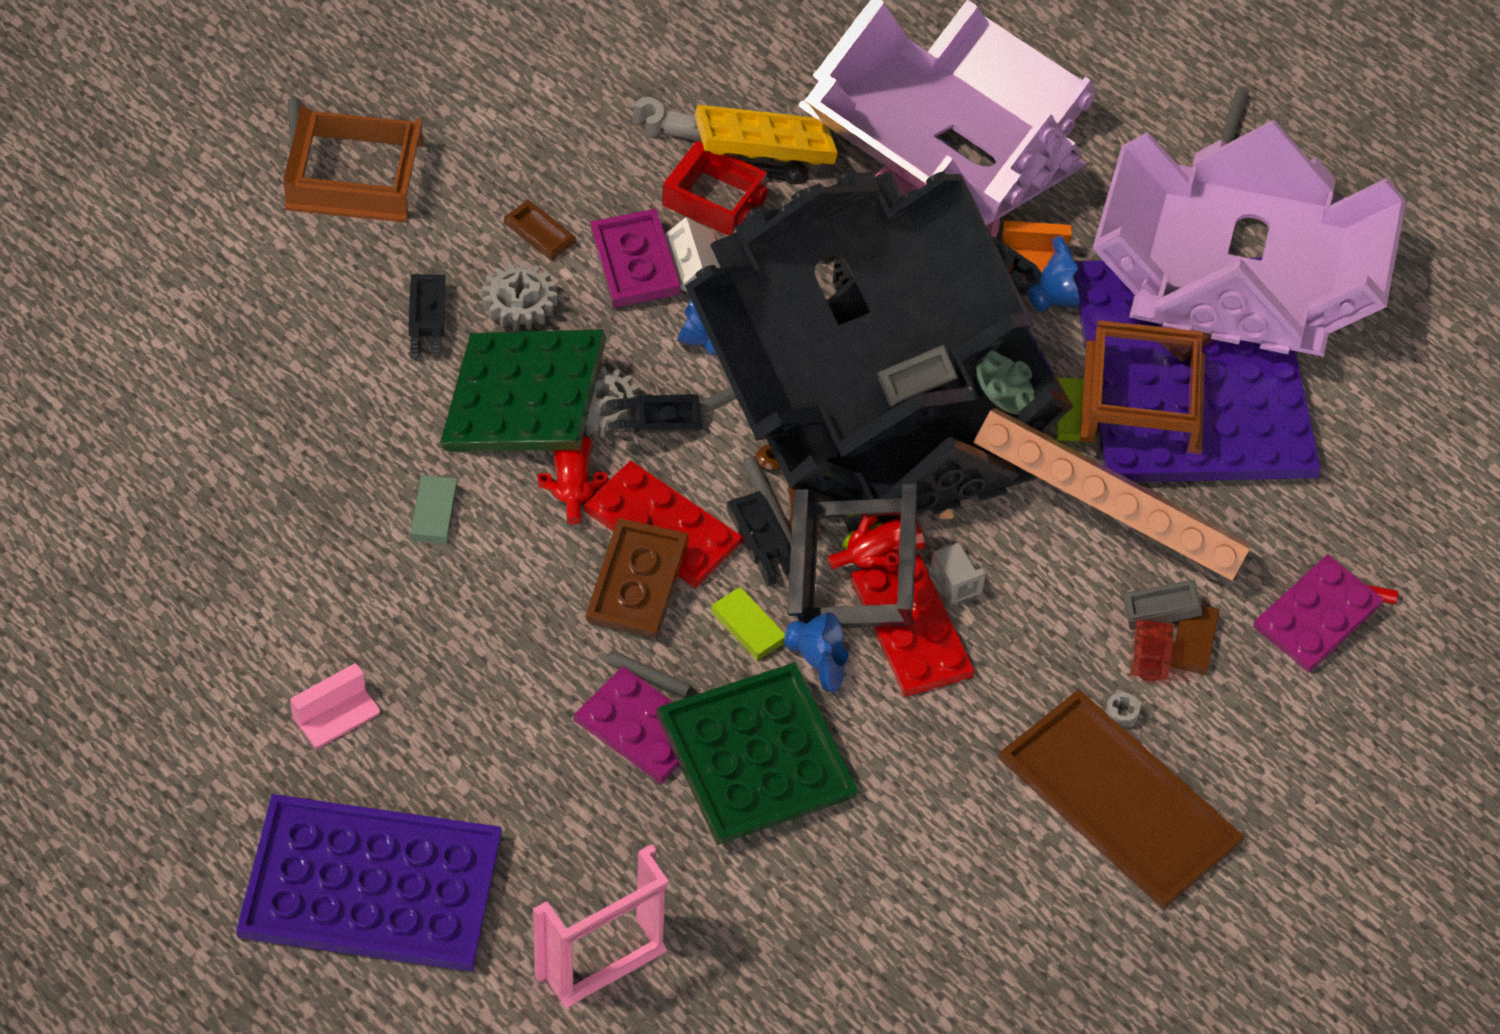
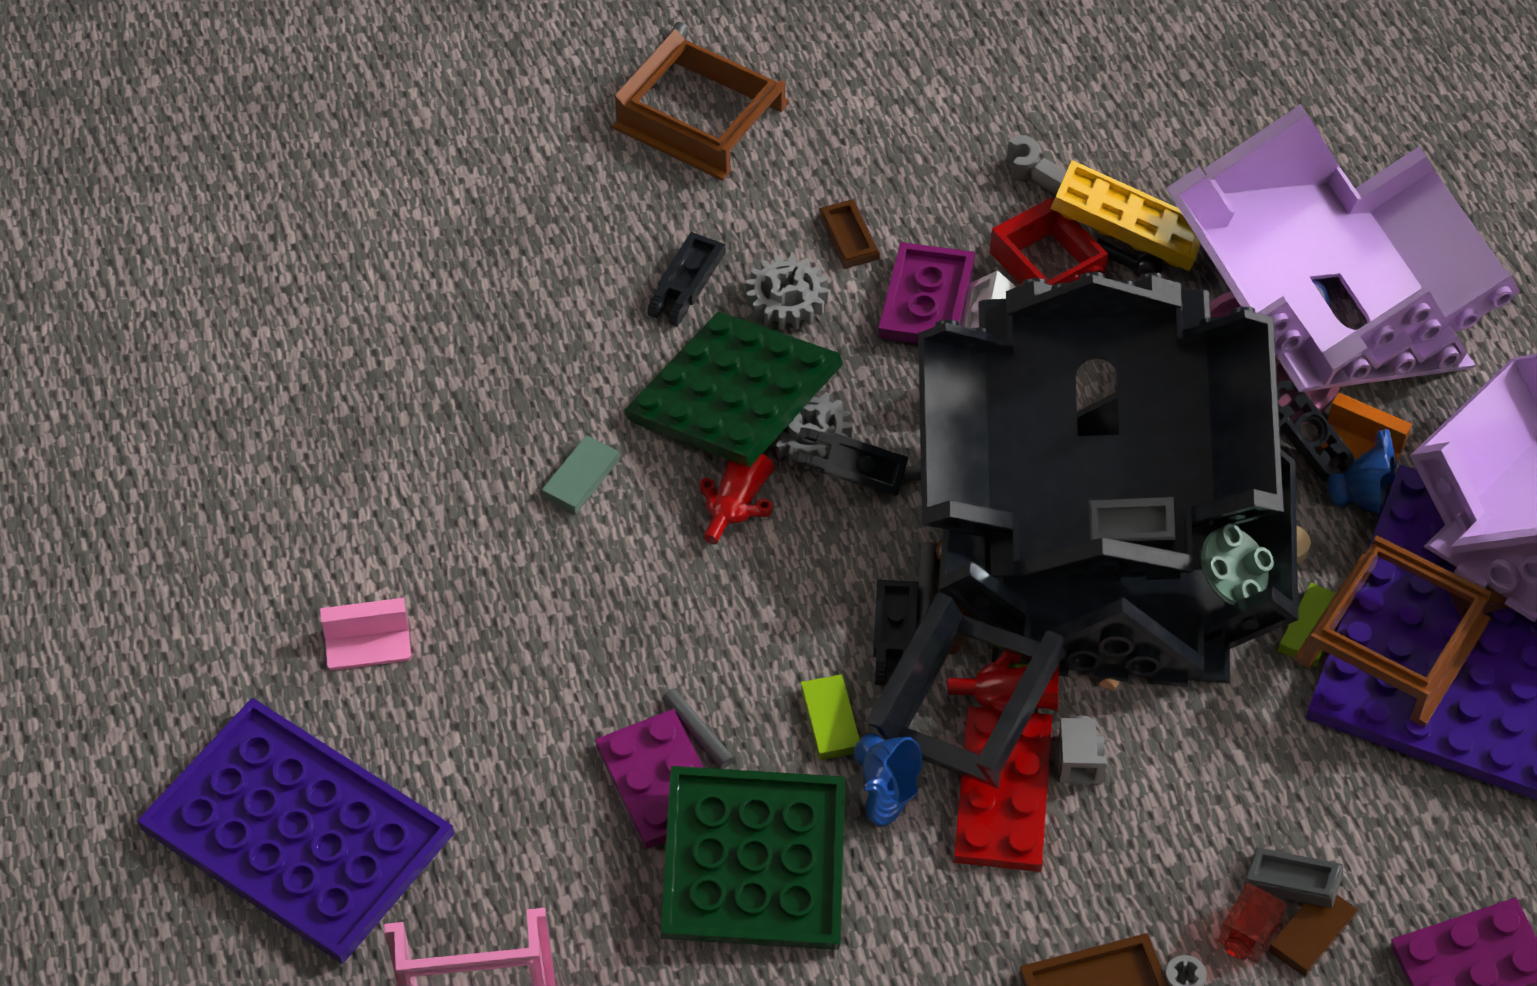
camera: 30 degrees right, 0 degrees up
(637, 578) = (737, 623): reddish brown plate -> none
(645, 499) = (802, 578): red plate -> none
(1112, 493) = (1296, 734): nougat brick -> none

